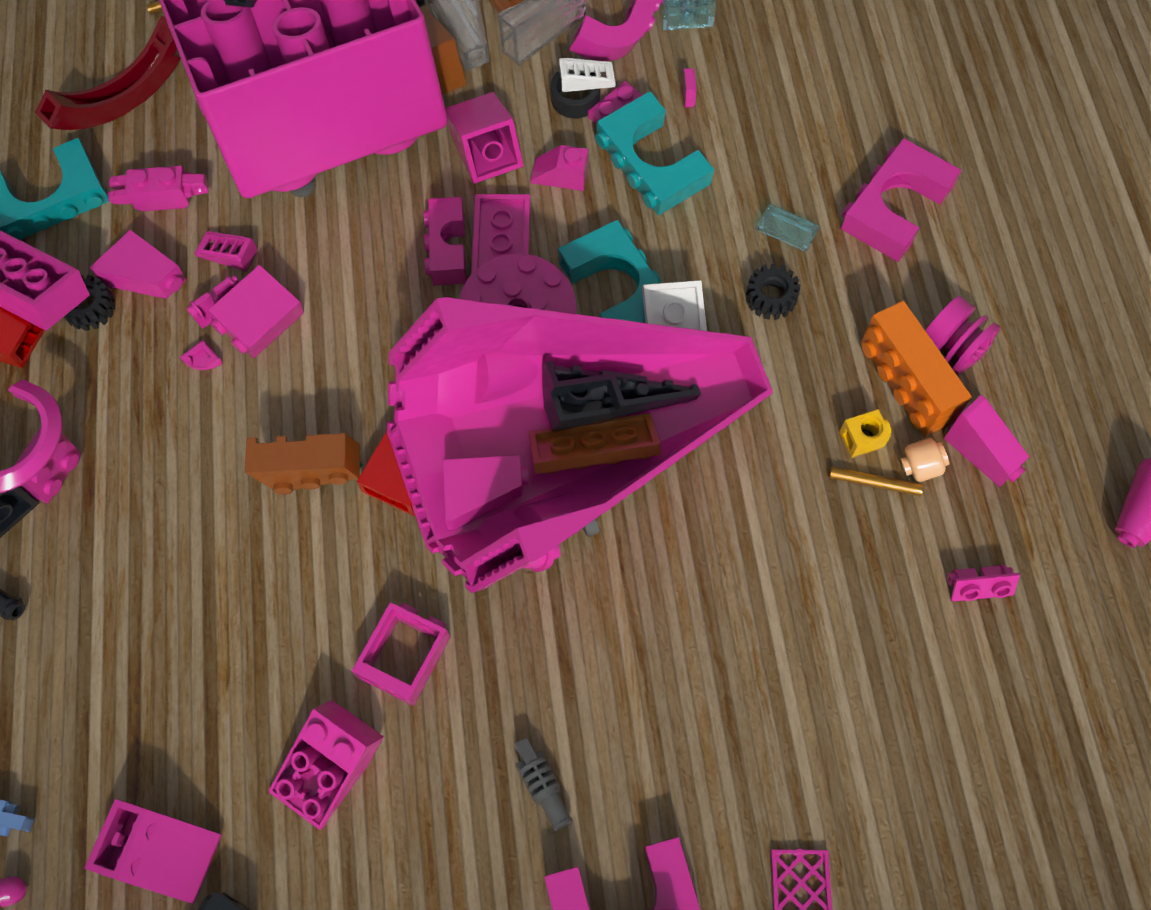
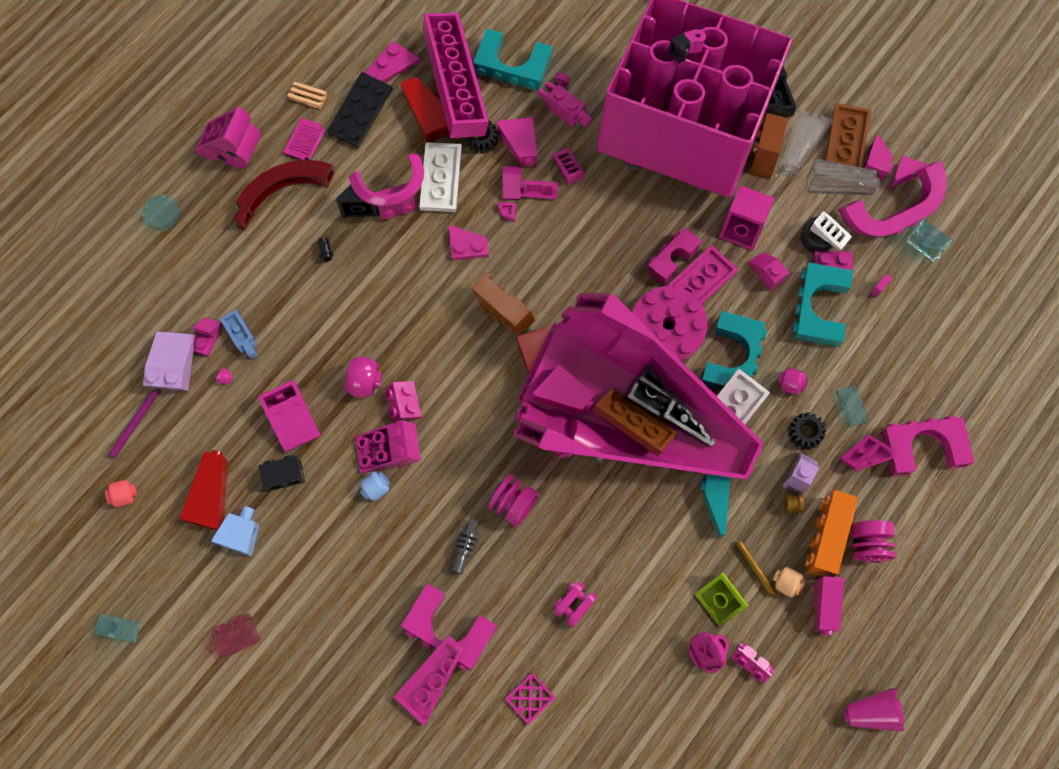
camera: 45 degrees right, 5 degrees up
(82, 390) = (441, 177): none -> white plate
(118, 95) = (588, 36): dark red arch -> none
(123, 164) = (561, 79): none -> dark pink plate
(176, 323) = (512, 183): none -> dark pink slope
(188, 437) = (467, 244): none -> dark pink wing
(208, 707) = (362, 377): none -> dark pink wheel
(255, 312) = (550, 211): dark pink brick -> none
(289, 689) = (402, 401): none -> dark pink bracket
(356, 826) = (374, 486): none -> light blue head
(408, 615) = (457, 417): dark pink window -> none
(545, 670) = (513, 500): none -> dark pink wheel
(706, 254) = (793, 381): none -> dark pink head
(726, 733) = (574, 591): none -> dark pink brick
(761, 448) = (716, 499): none -> teal slope
(818, 337) = (801, 474): none -> lavender slope
(841, 376) = (793, 503): none -> pearl gold wheel
(855, 257) = (867, 454): none -> dark pink wing
(859, 443) = (766, 541): yellow brick -> none
(881, 547) = (721, 599): none -> lime slope
(931, 617) = (709, 651): none -> dark pink tile

